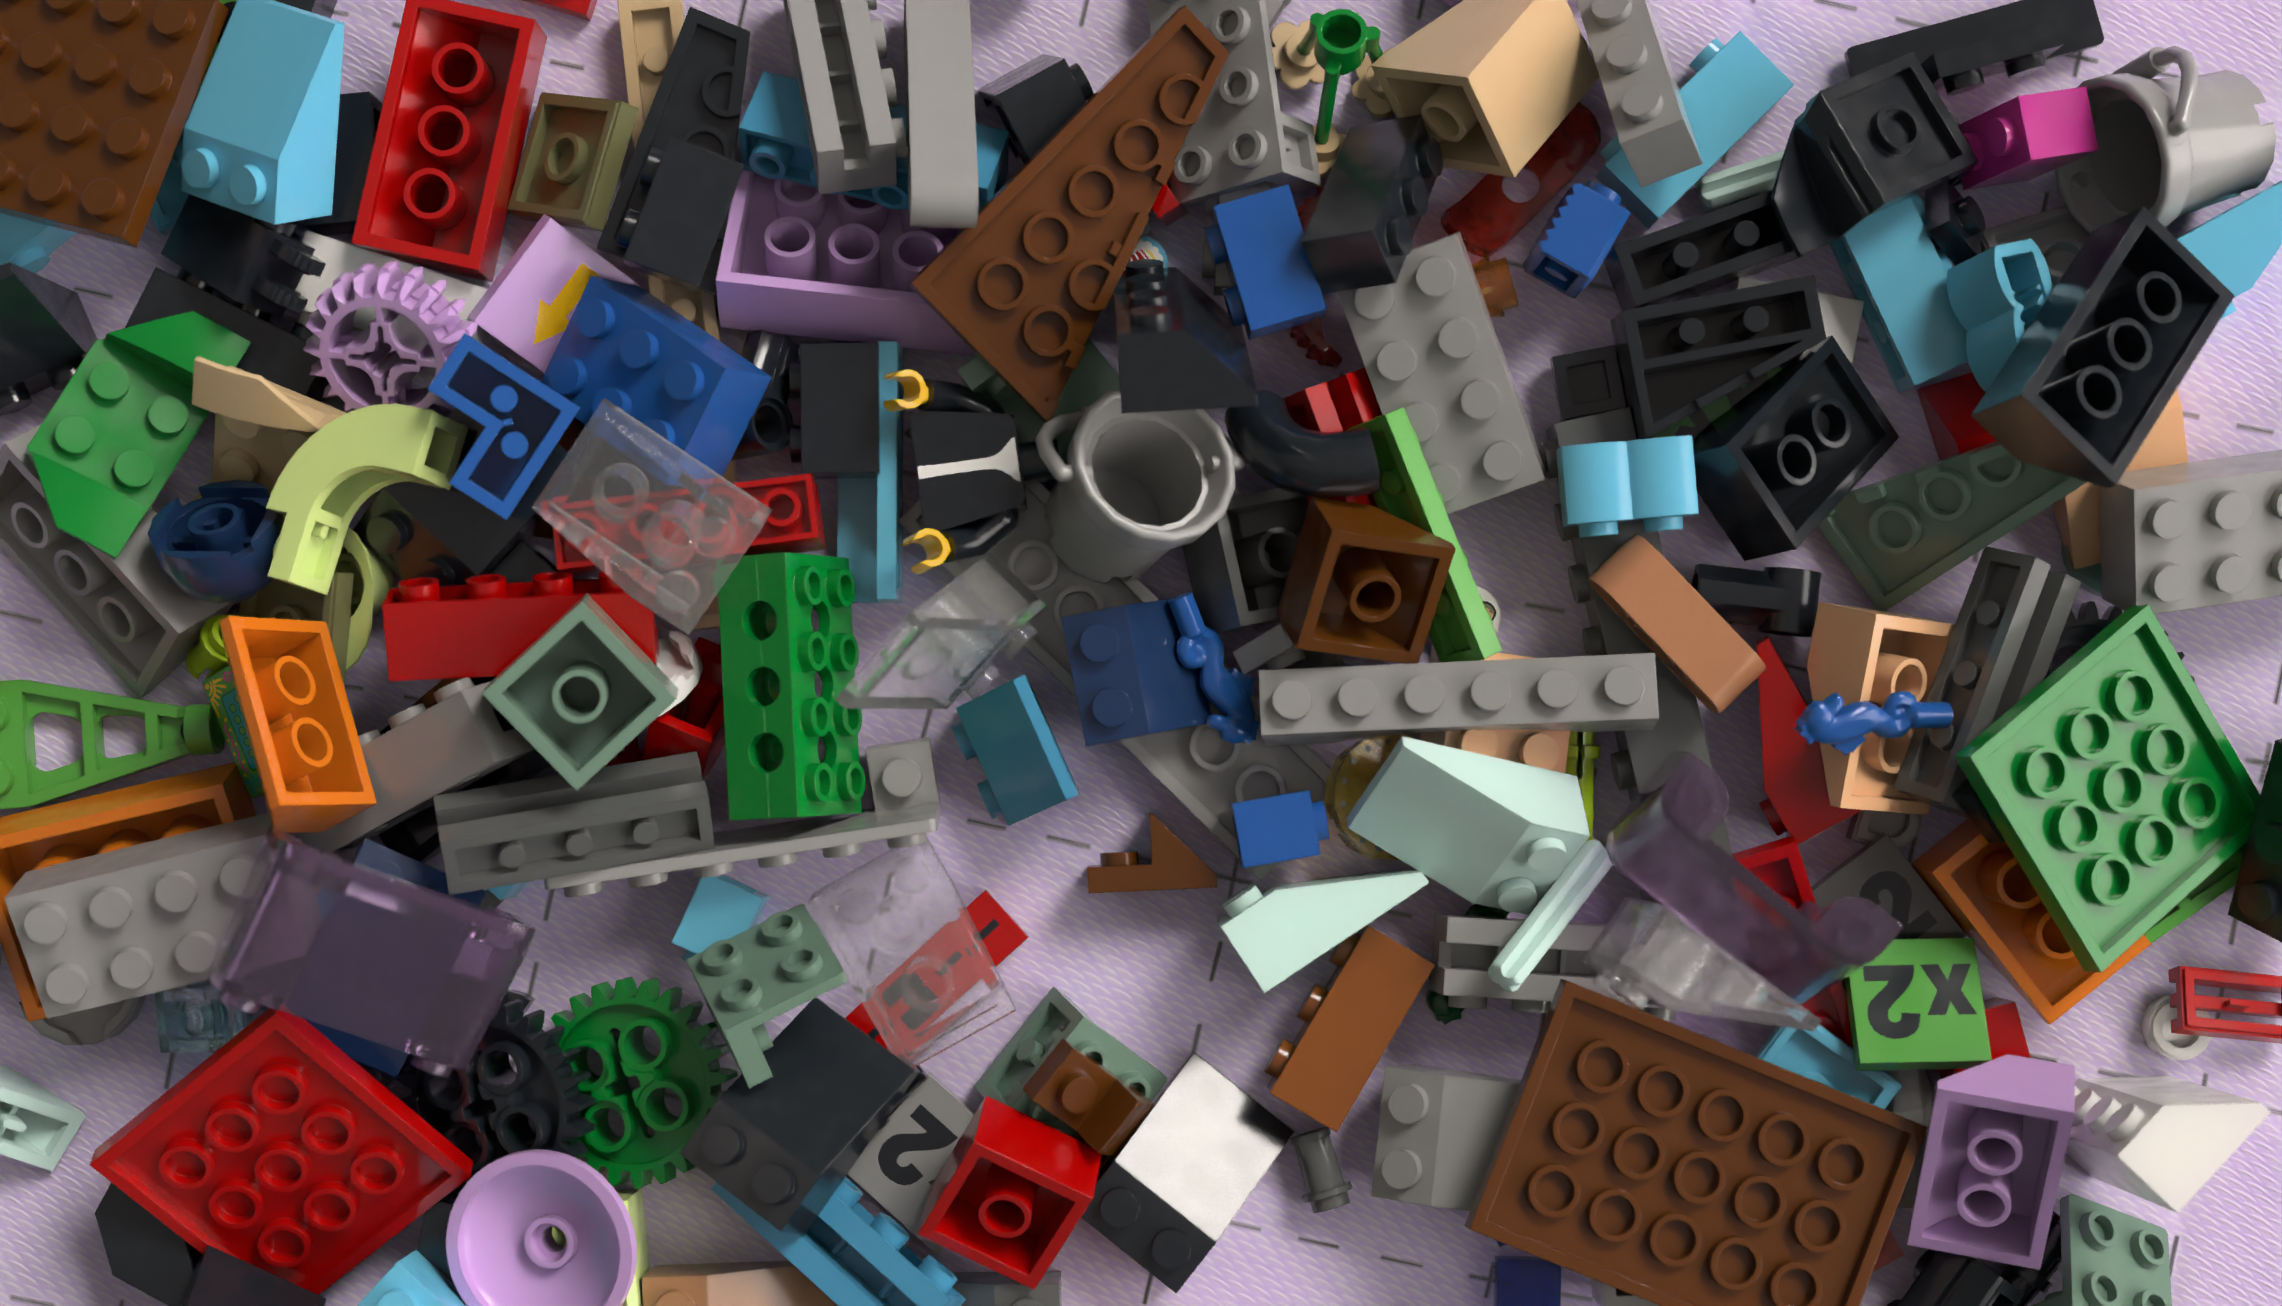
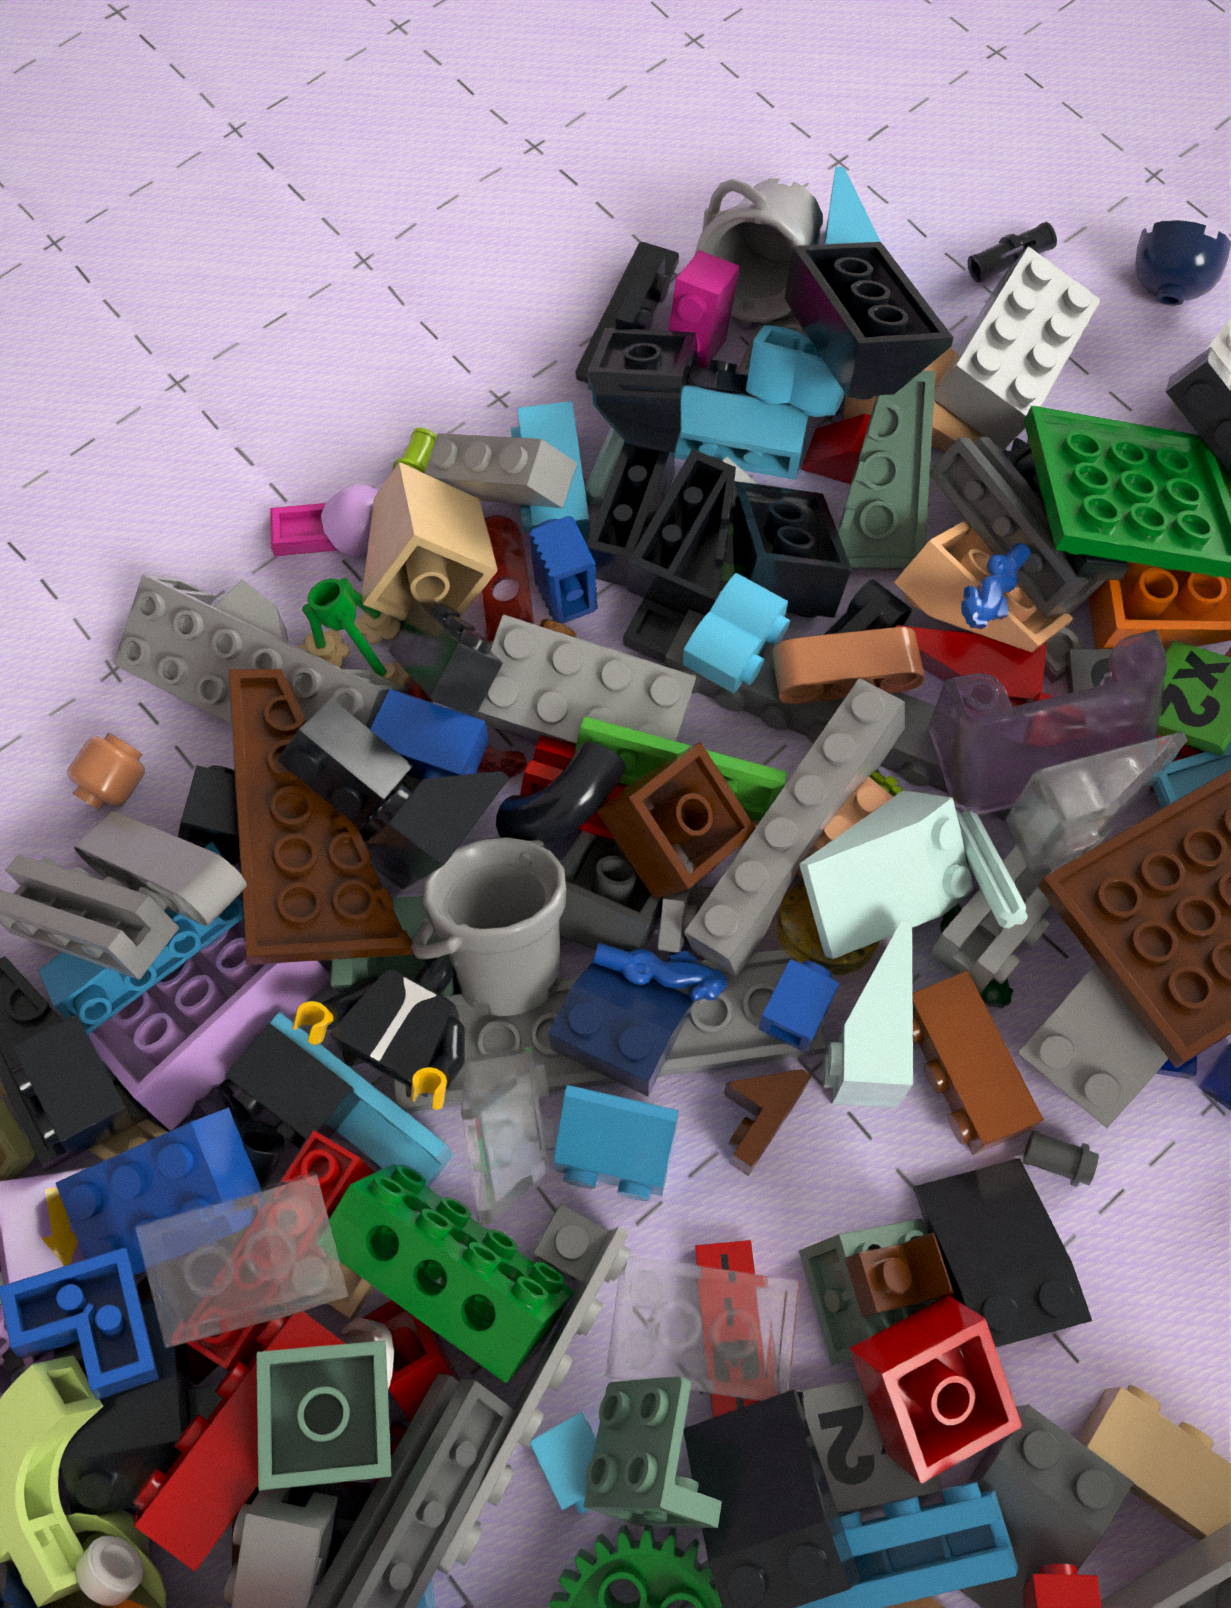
camera: 45 degrees left, 20 degrees down
(337, 604) = (109, 1570): none -> white tile
(1174, 209) = (344, 762): none -> black brick

